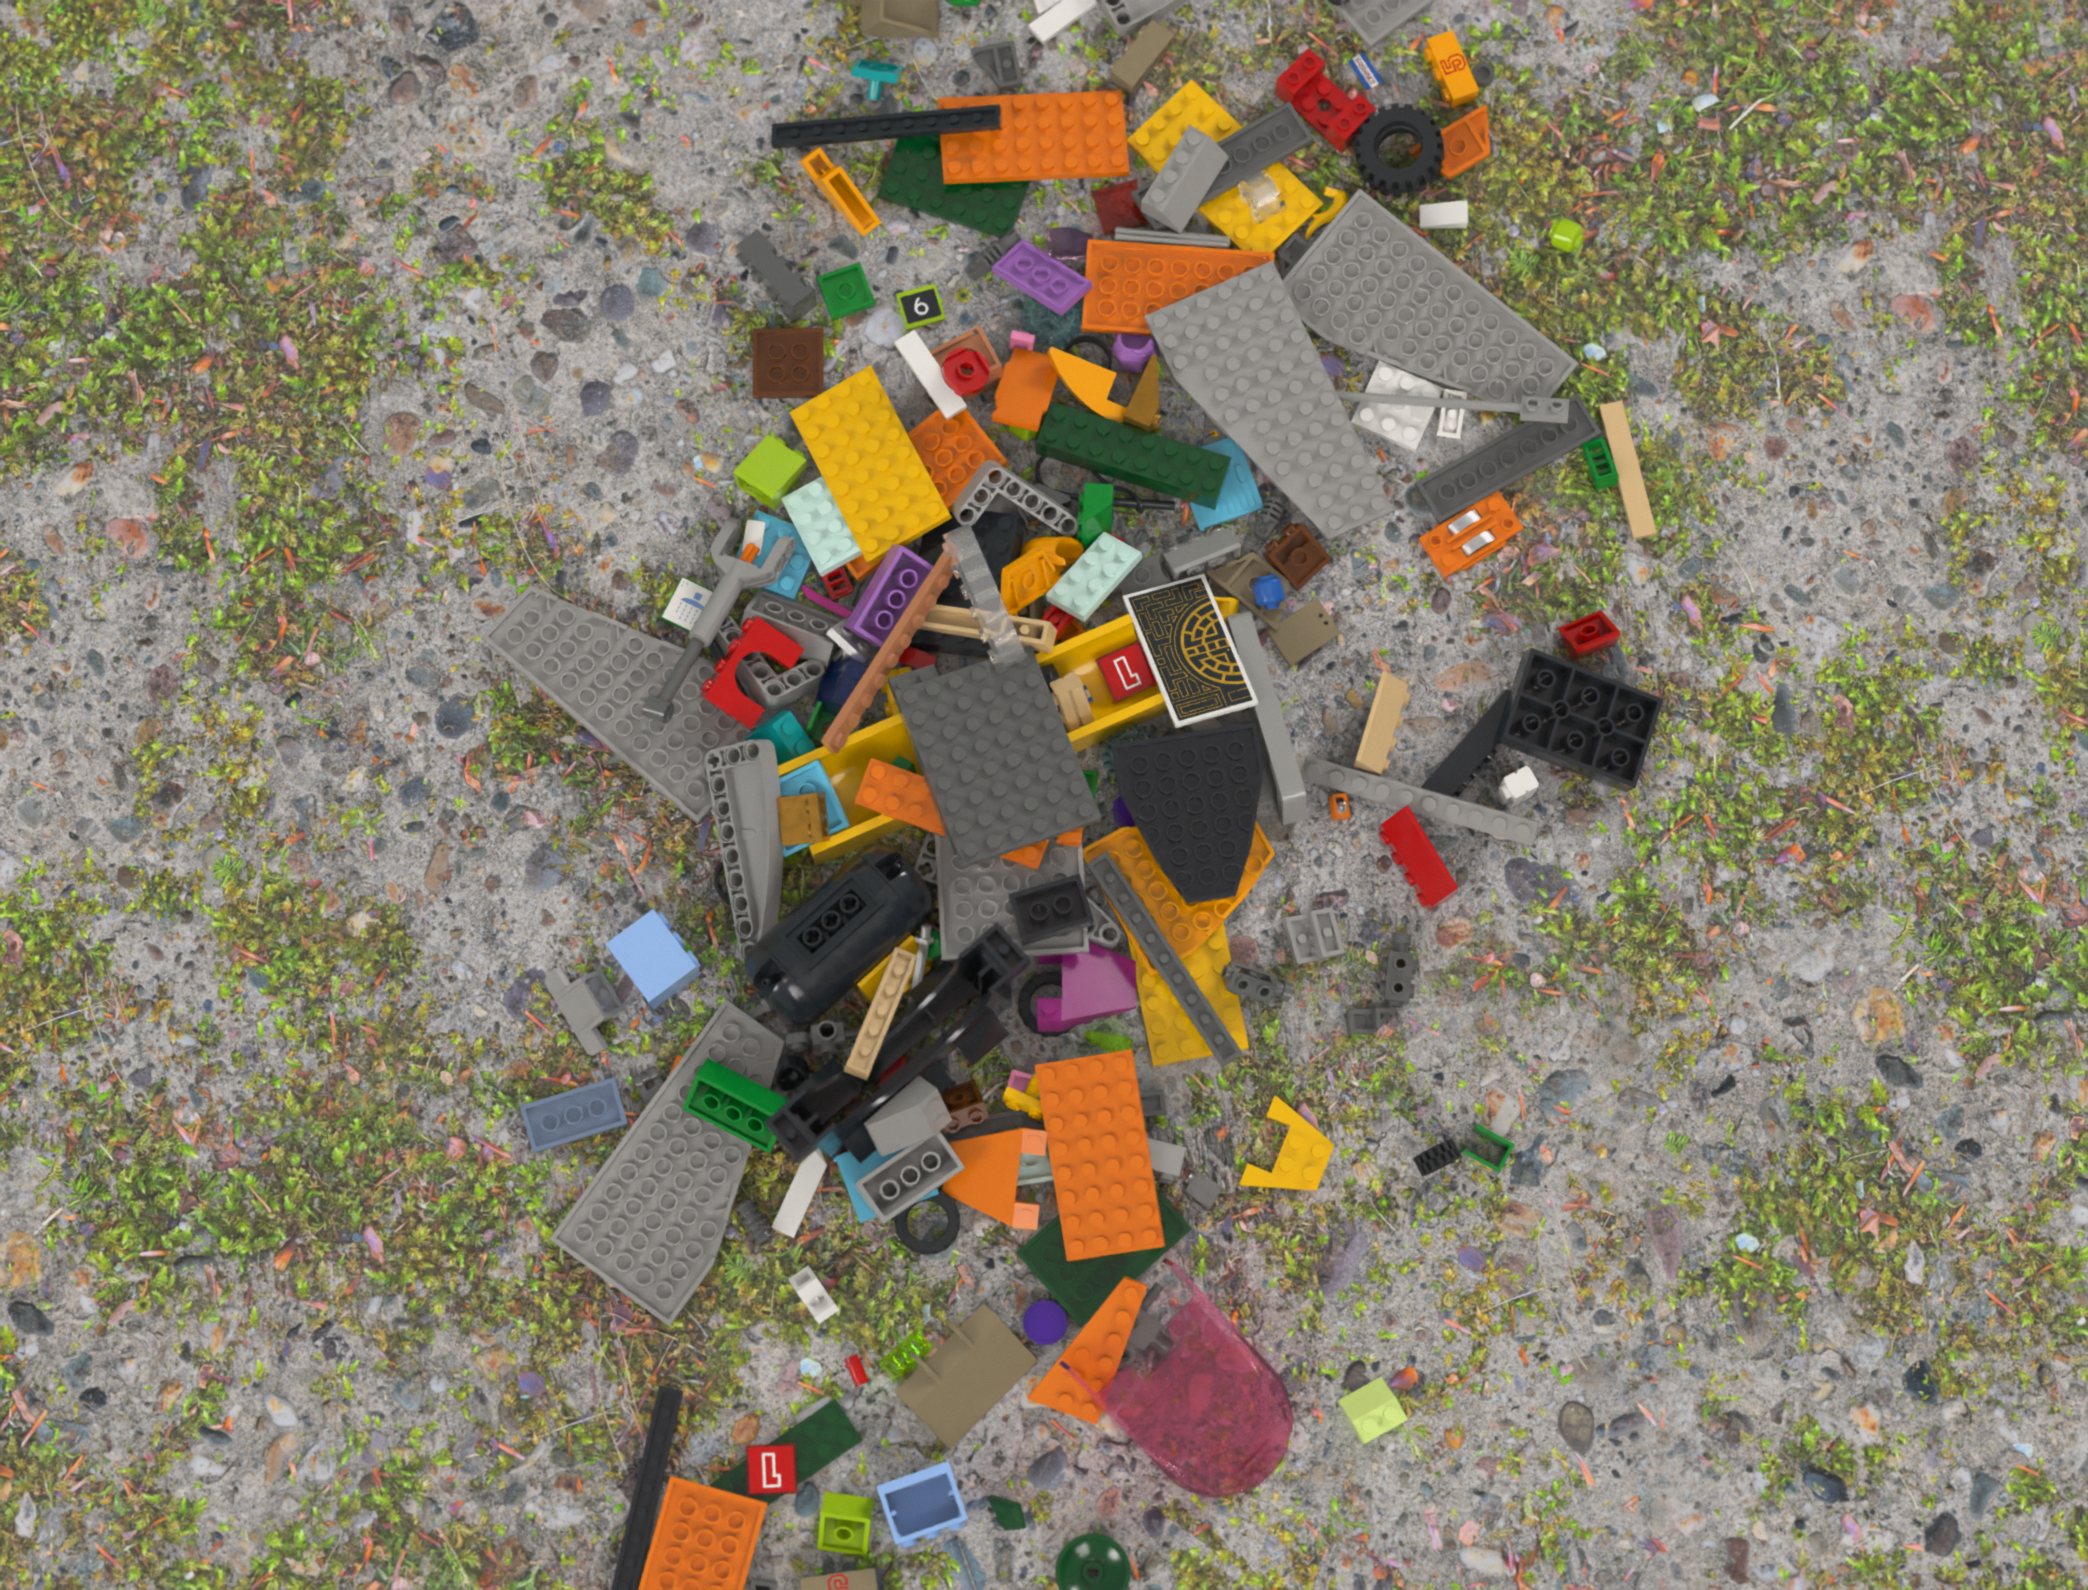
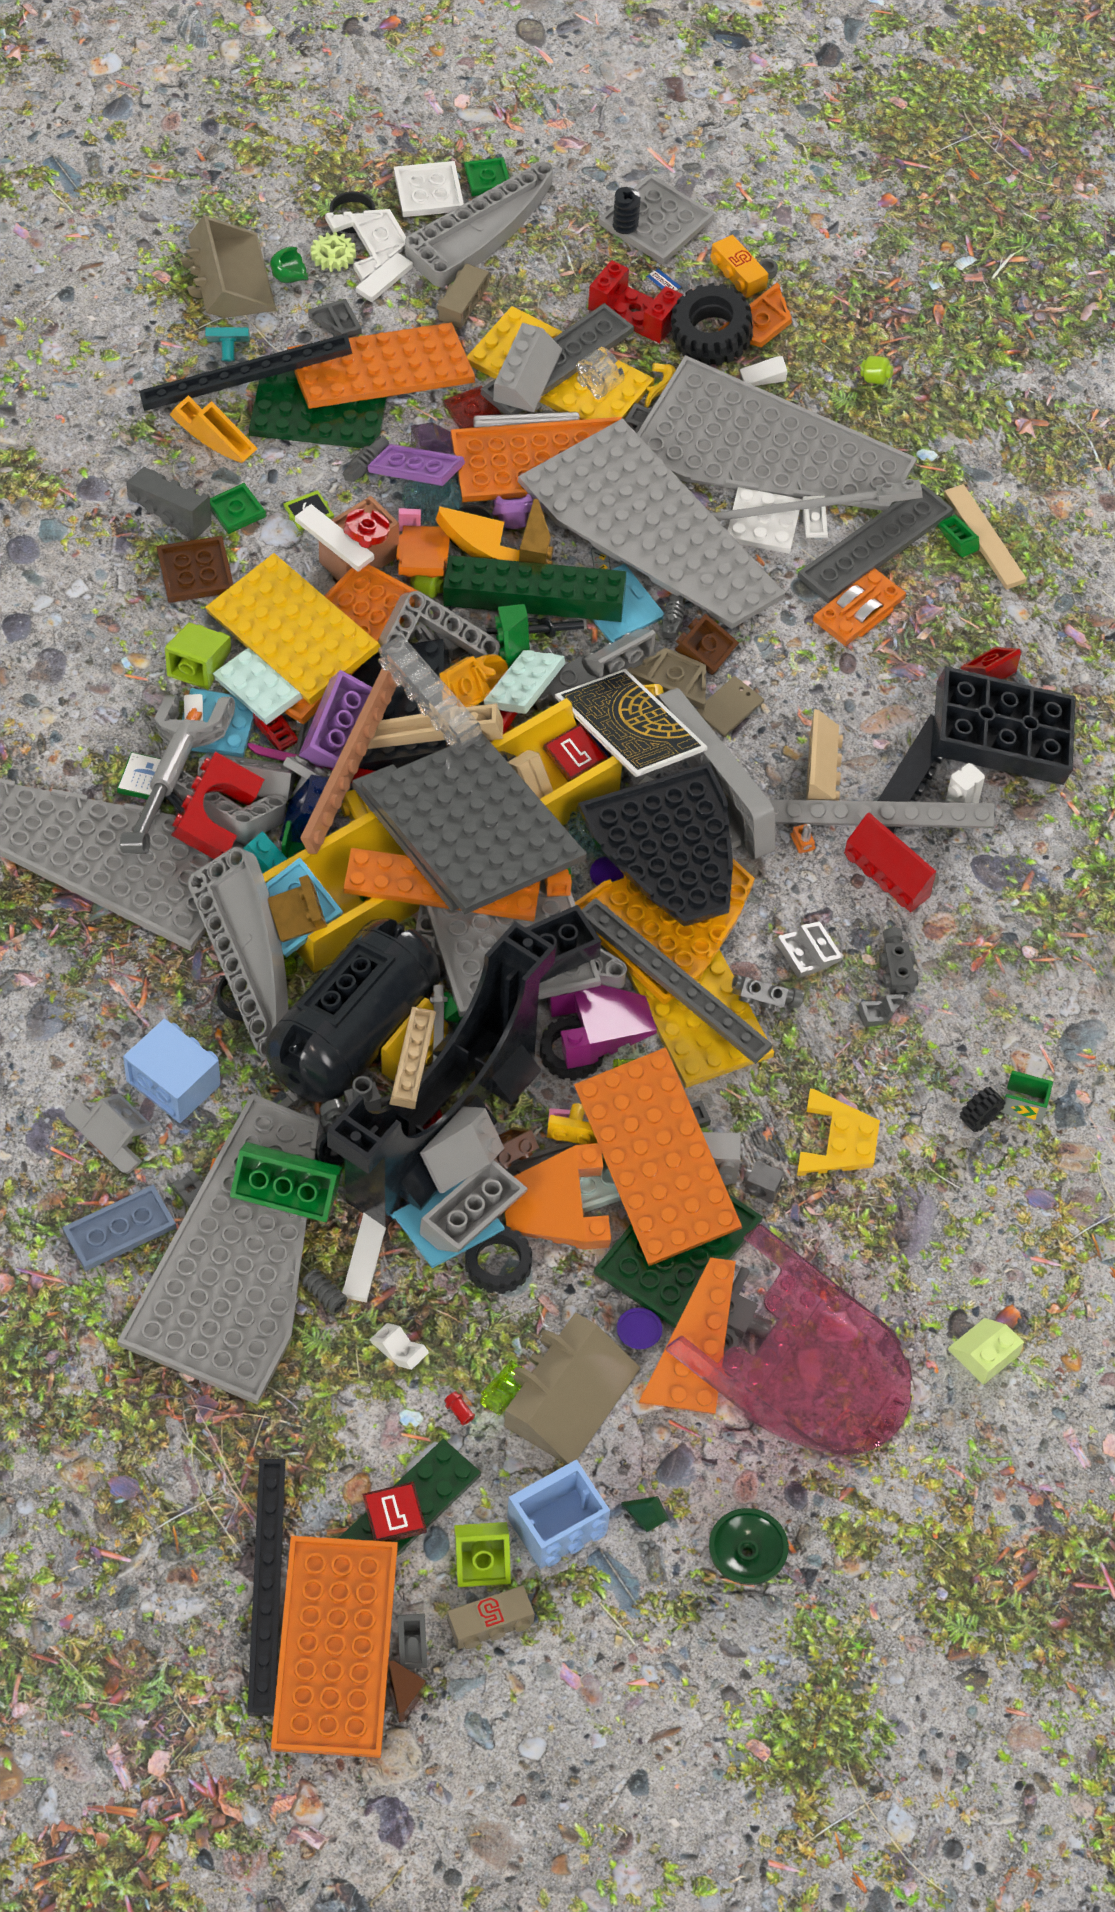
camera: 15 degrees left, 20 degrees down
(1269, 591) = (689, 671): blue head -> none

